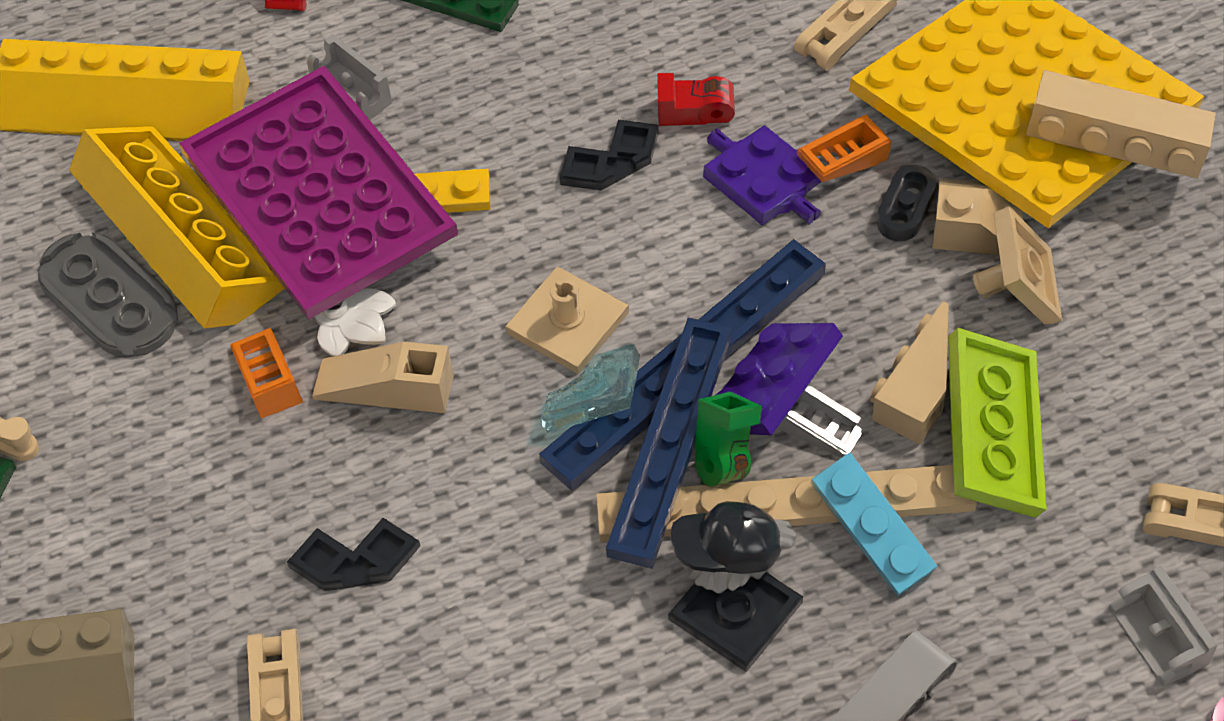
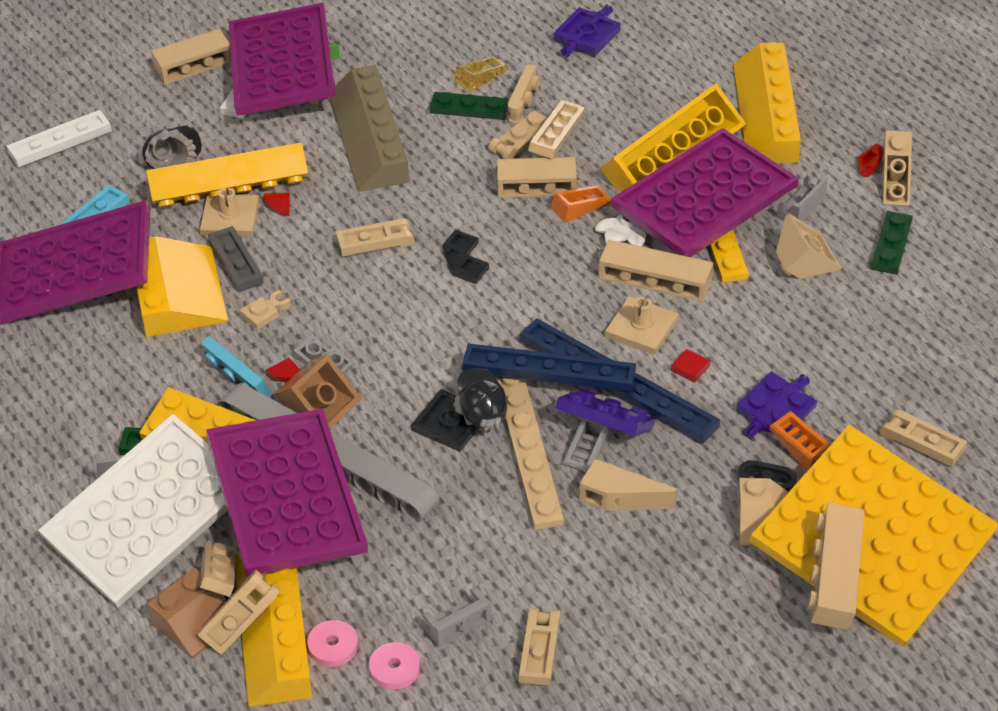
camera: 80 degrees right, 10 degrees down
(72, 441) = (518, 137): none -> tan plate
(95, 376) = (556, 129): none -> tan plate
(108, 294) = (621, 129): dark grey tile -> none
(195, 423) = (535, 176): none -> tan brick
(389, 376) = (578, 251): tan slope -> none
(462, 276) = (656, 270): none -> tan brick
(465, 94) = (804, 250): none -> tan slope
(597, 392) = (582, 336): clear light blue tile -> none
(598, 169) = (782, 341): black tile -> none
(664, 268) = (690, 365): none -> red tile
(694, 100) = (827, 361): red leg -> none
(724, 437) = (551, 387): green leg -> none
(873, 524) = (508, 470): medium azure plate -> none
(996, 423) = (592, 525): lime plate -> none
(1024, 268) = (715, 532): tan tile -> none

